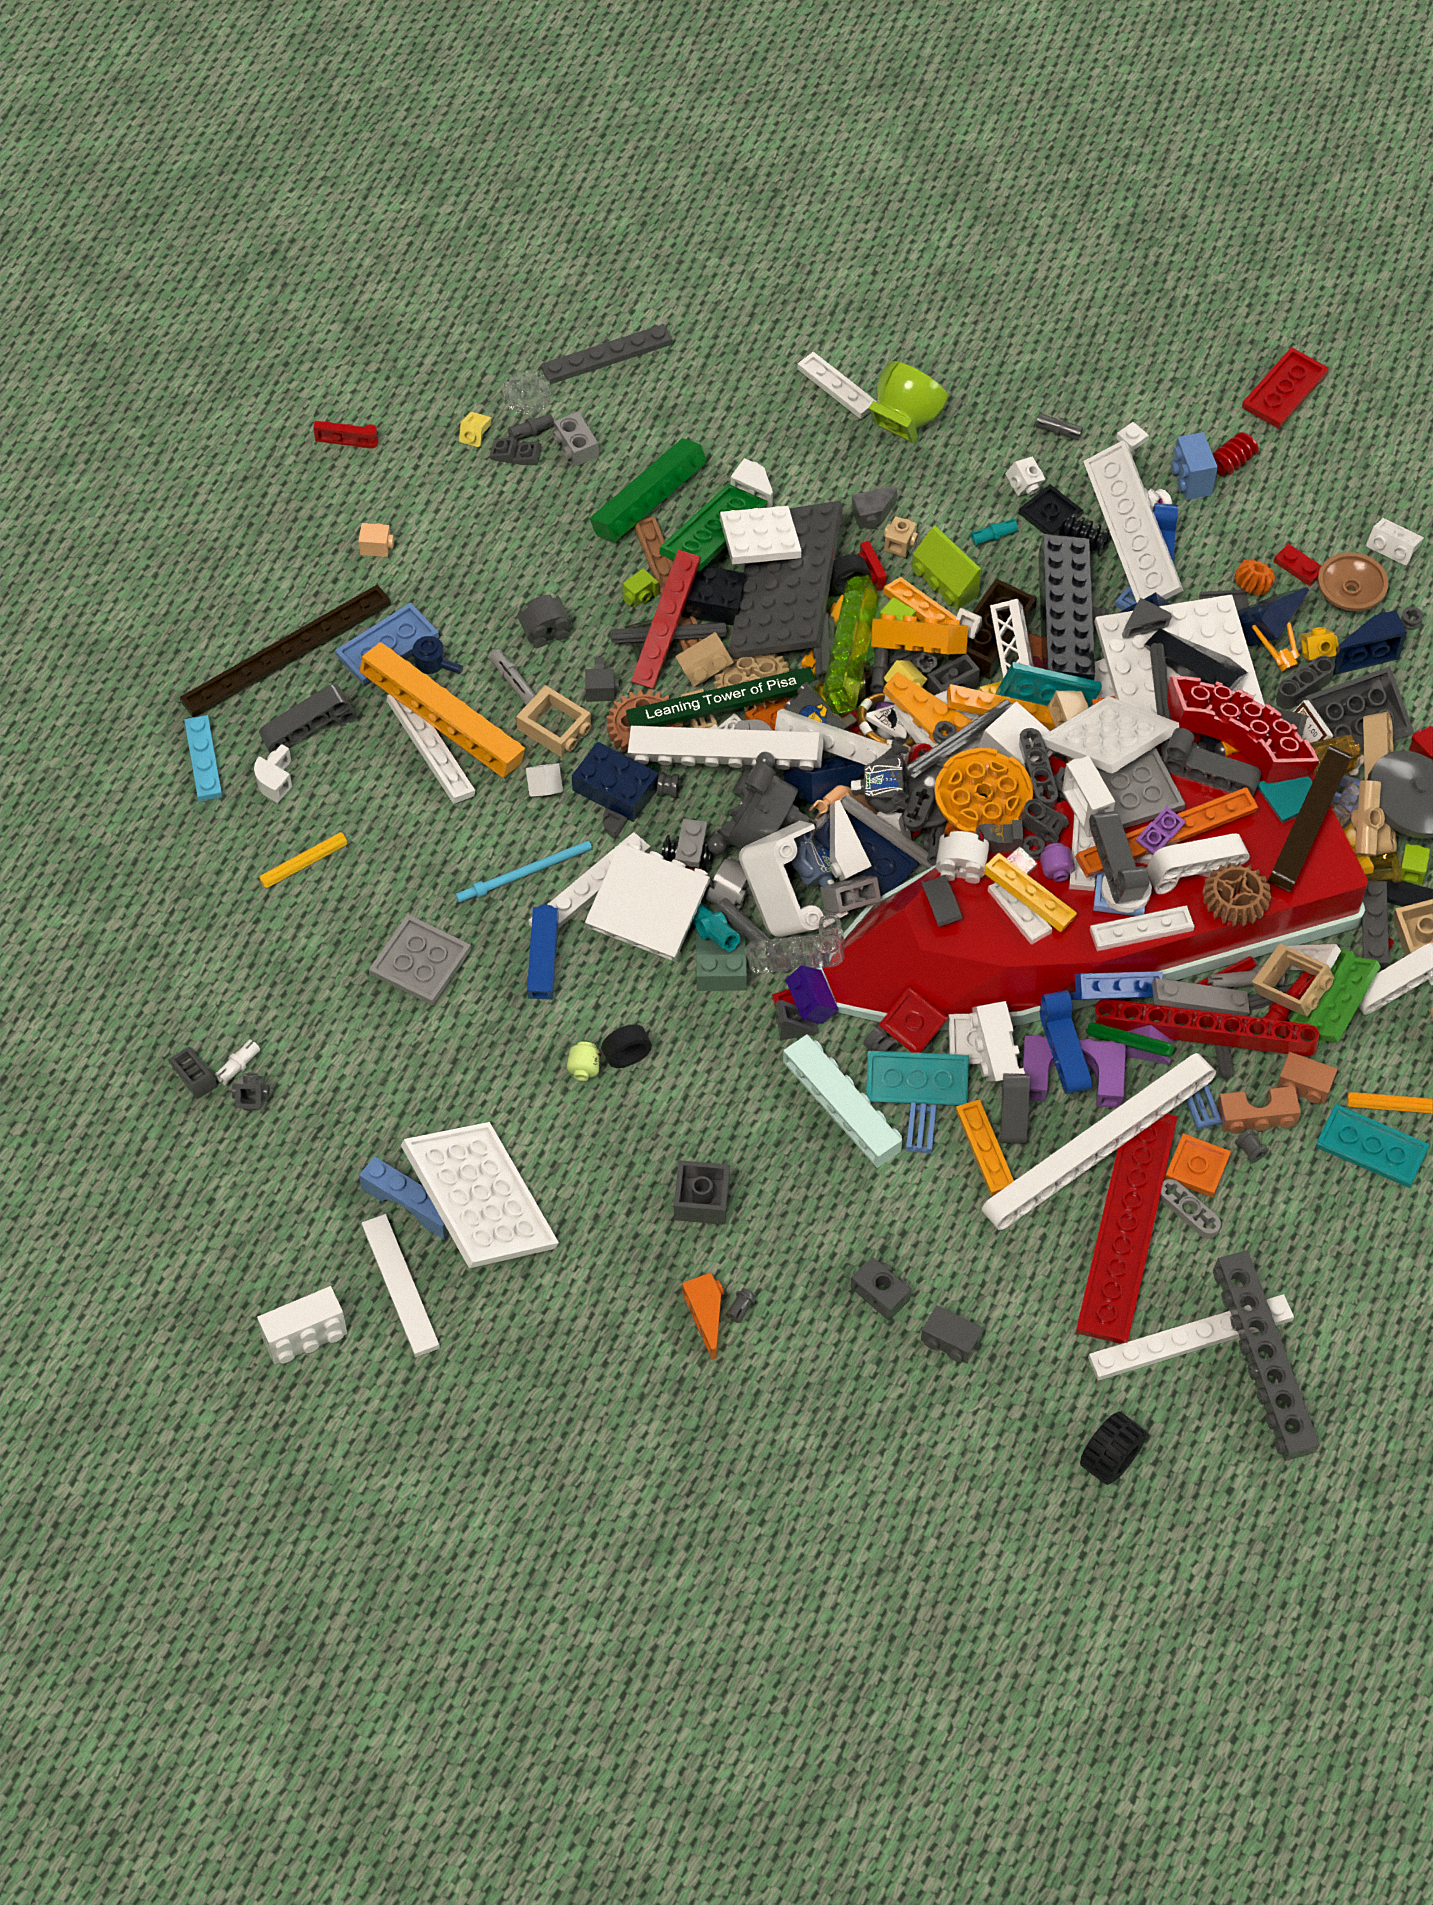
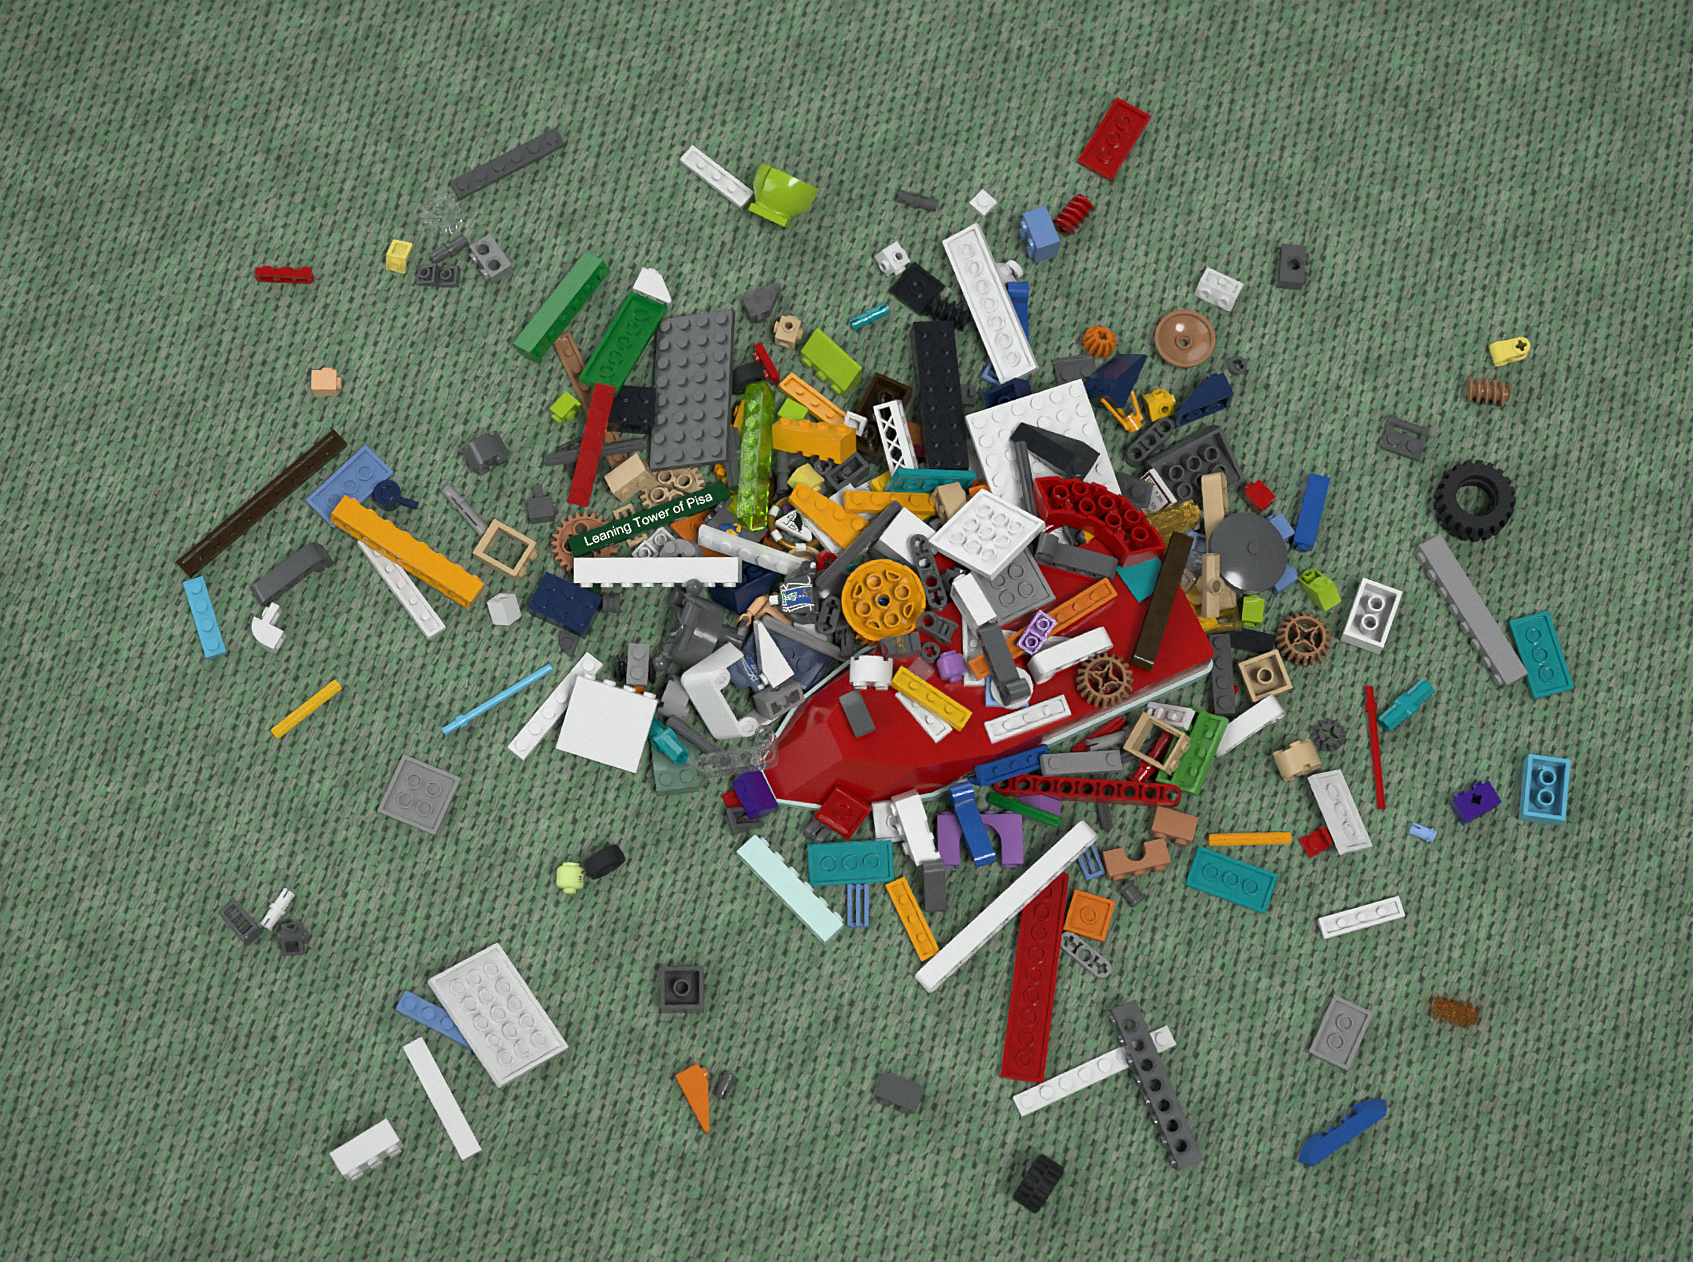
camera: 10 degrees left, 15 degrees up
(543, 952) = (523, 779): blue brick -> none
(760, 535) = (665, 352): white plate -> none
(887, 1301) = (844, 1070): dark grey brick -> none
(946, 726) = (848, 533): dark grey bush -> none
(1146, 618) = (1007, 416): dark grey slope -> none
(1298, 564) = (1137, 321): red plate -> none

